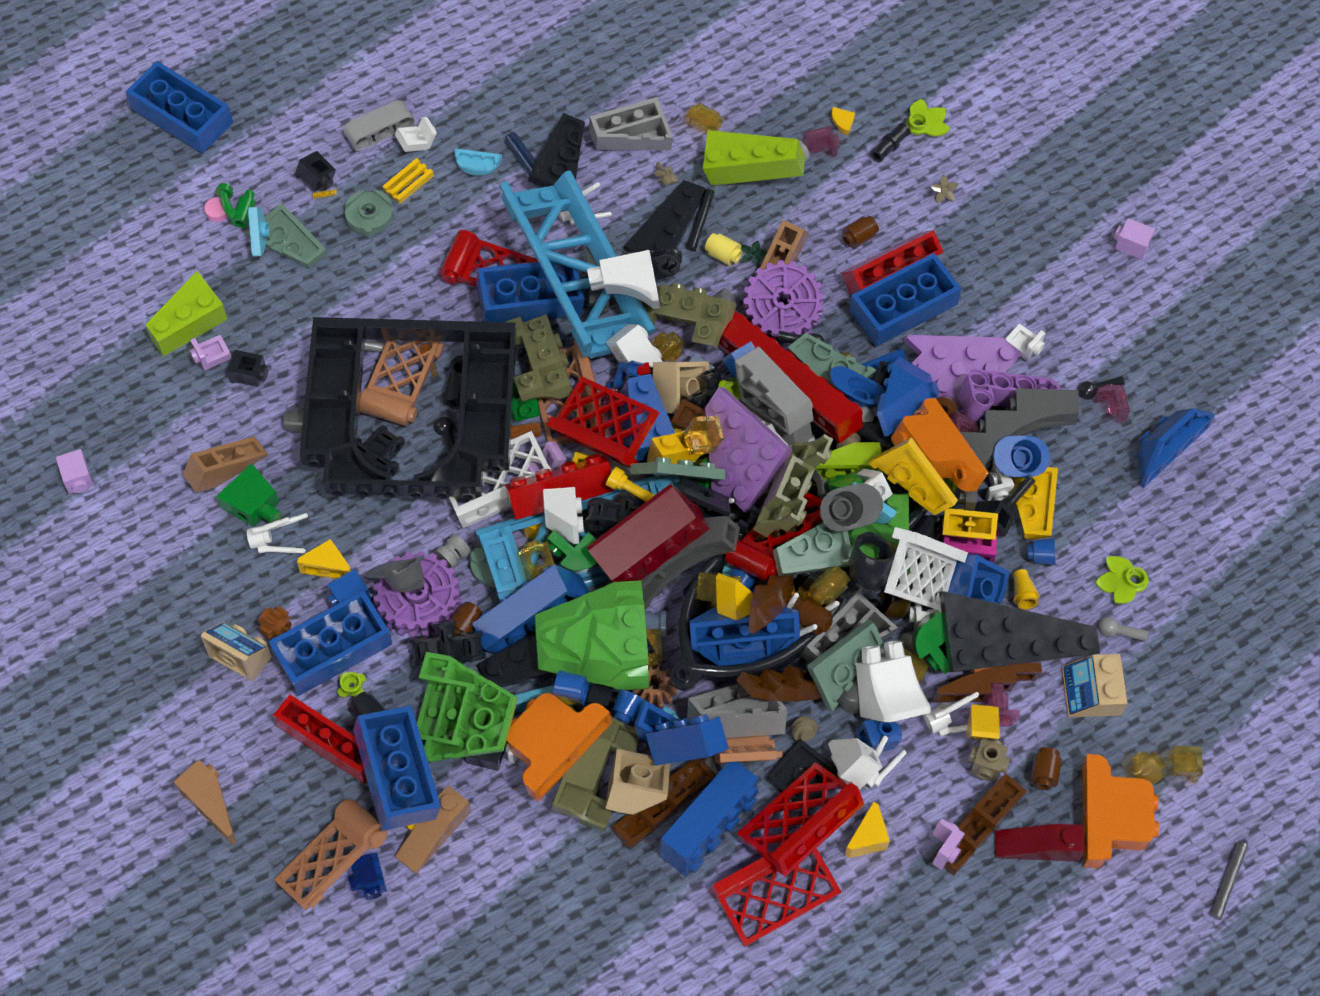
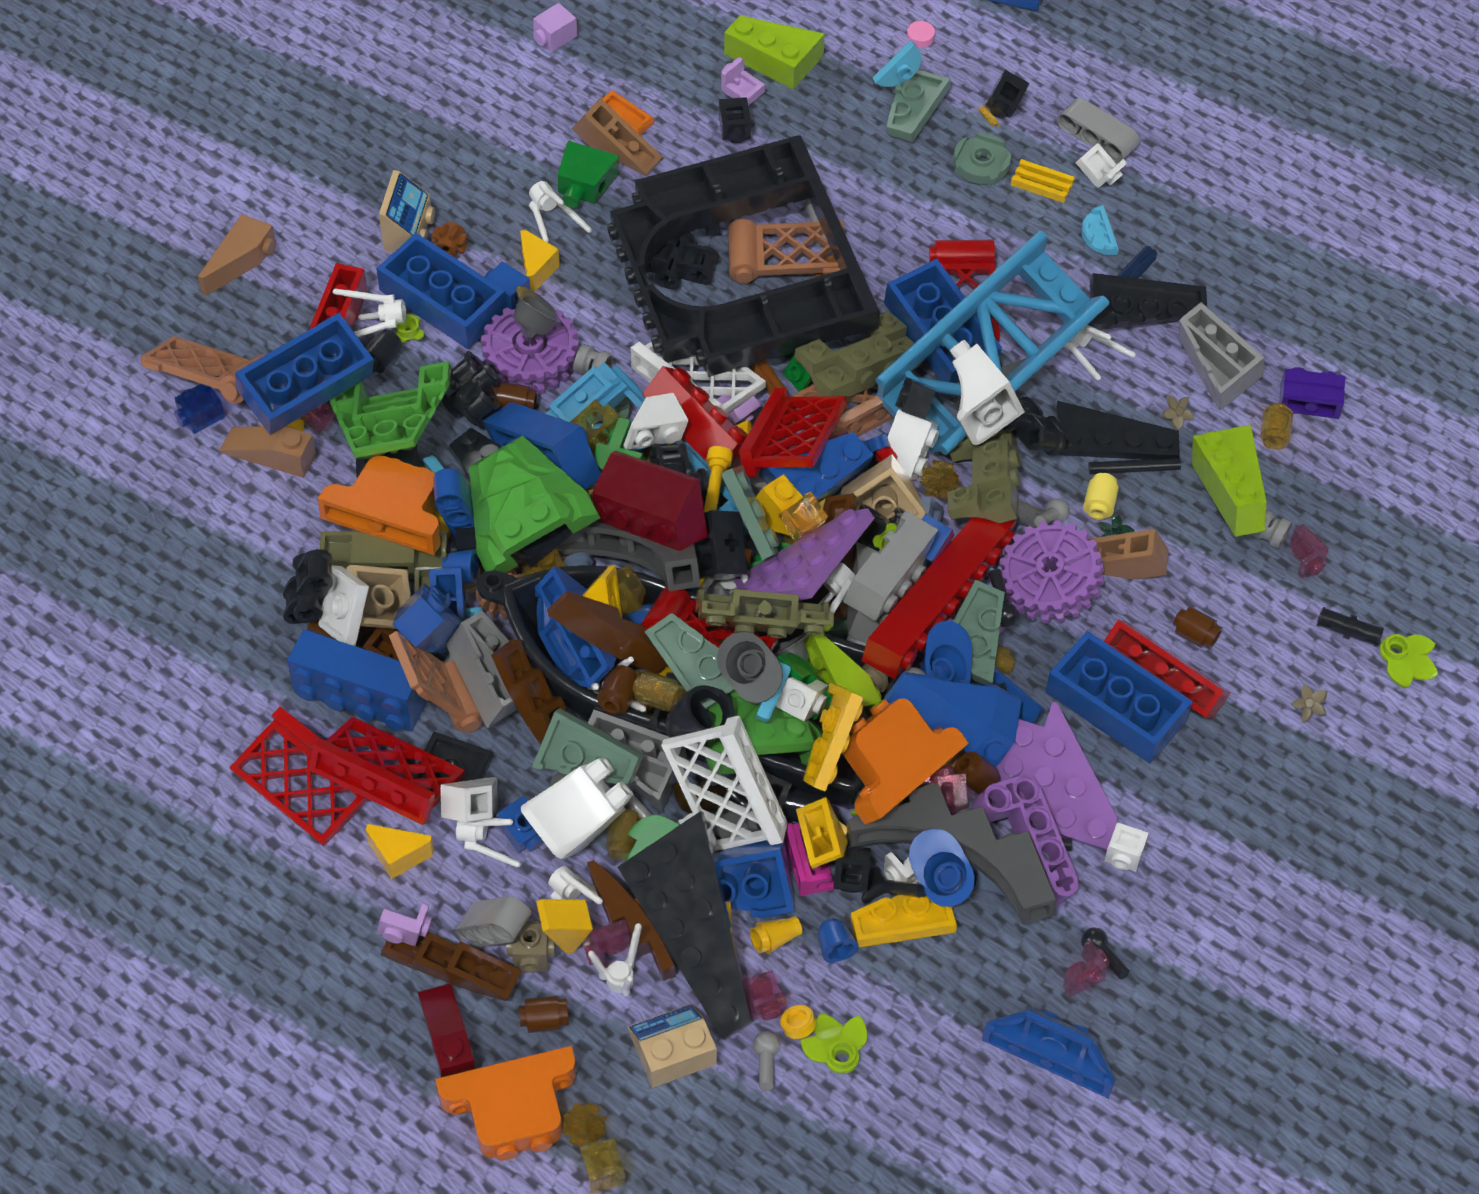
camera: 70 degrees right, 5 degrees down
(181, 452) = (634, 116): none -> orange tile
(238, 216) = (934, 53): green plant -> none
(338, 688) = (389, 313): none -> white plant
(607, 829) = (307, 587): none -> black axle
(610, 326) = (915, 398): none -> black brick
(643, 803) = (343, 606): none -> white tile
(685, 86) = (1313, 392): none -> dark purple brick
(723, 281) = (1055, 510): none -> light grey bar
(804, 728) = (505, 750): dark tan plate -> none
(843, 120) = (1357, 570): yellow tile -> none
(968, 776) = (493, 921): none -> light grey beam
(1029, 704) = (619, 973): none -> white plant
(1074, 611) = (765, 996): none -> clear pink bracket
(1100, 598) = (798, 1022): none -> yellow tile
(1133, 238) = (1347, 935): lavender brick -> none

